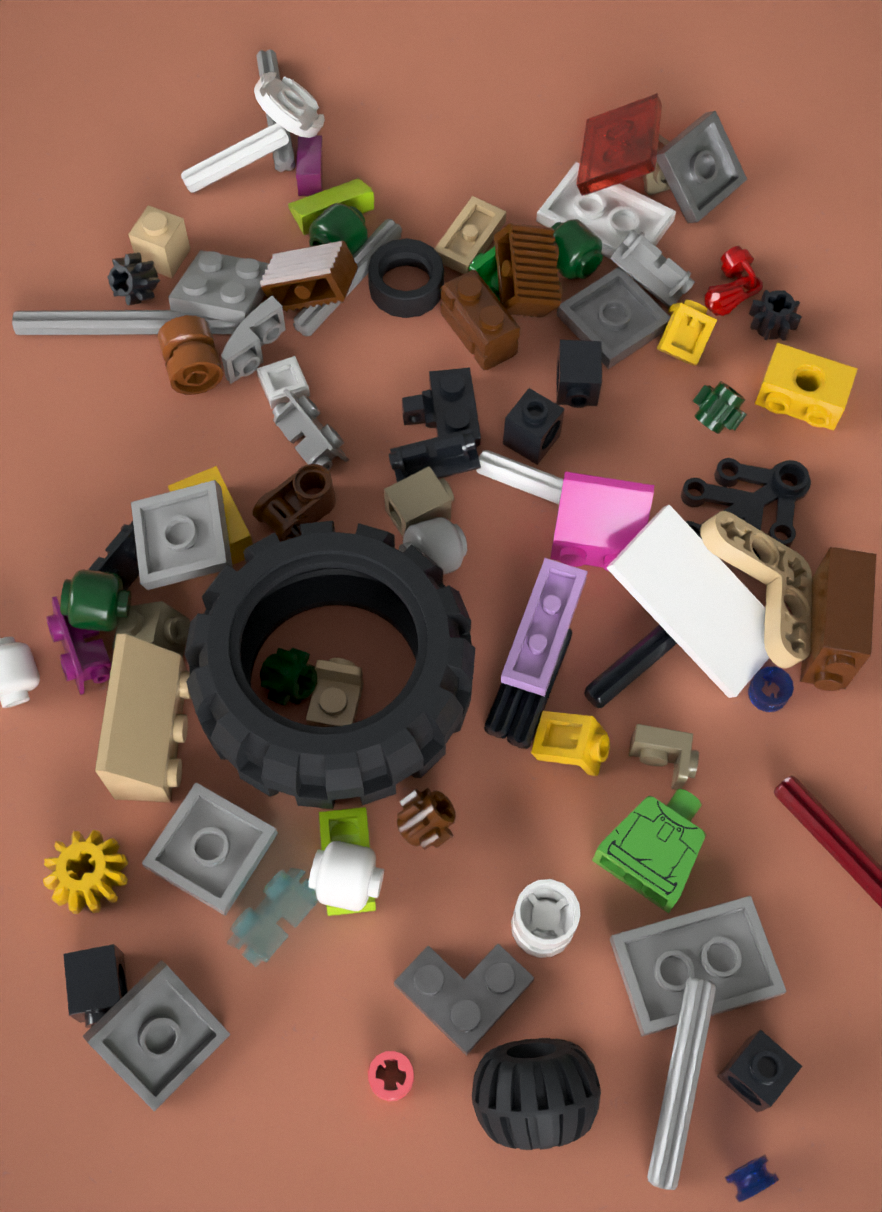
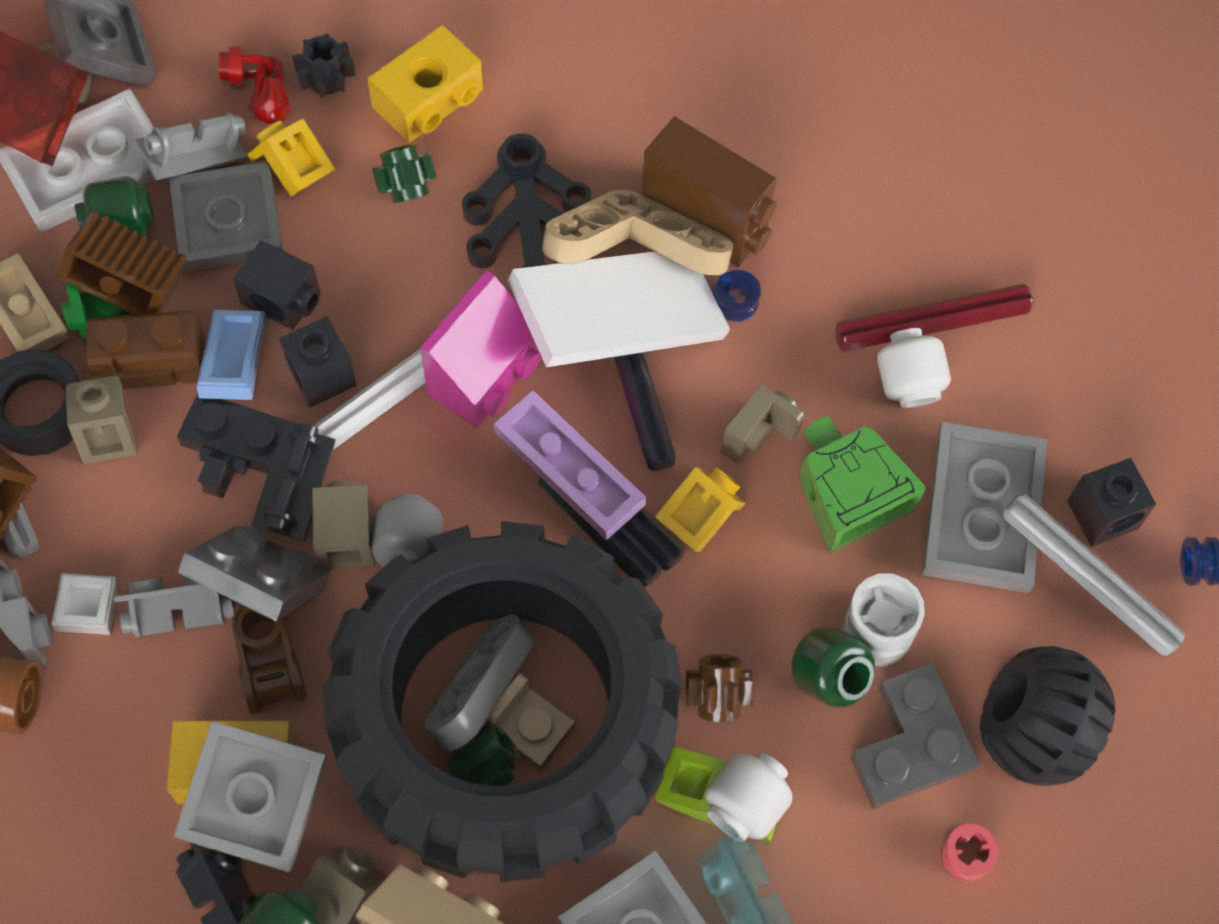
camera: 65 degrees left, 0 degrees up
(341, 645) = (479, 683): none -> light grey beam
(348, 463) = (255, 571): none -> flat silver plate
(408, 316) = (99, 420): none -> dark tan bracket
(485, 896) = (833, 666): none -> dark green head
(509, 373) = (231, 355): none -> light blue tile
(786, 852) = (913, 368): none -> white head

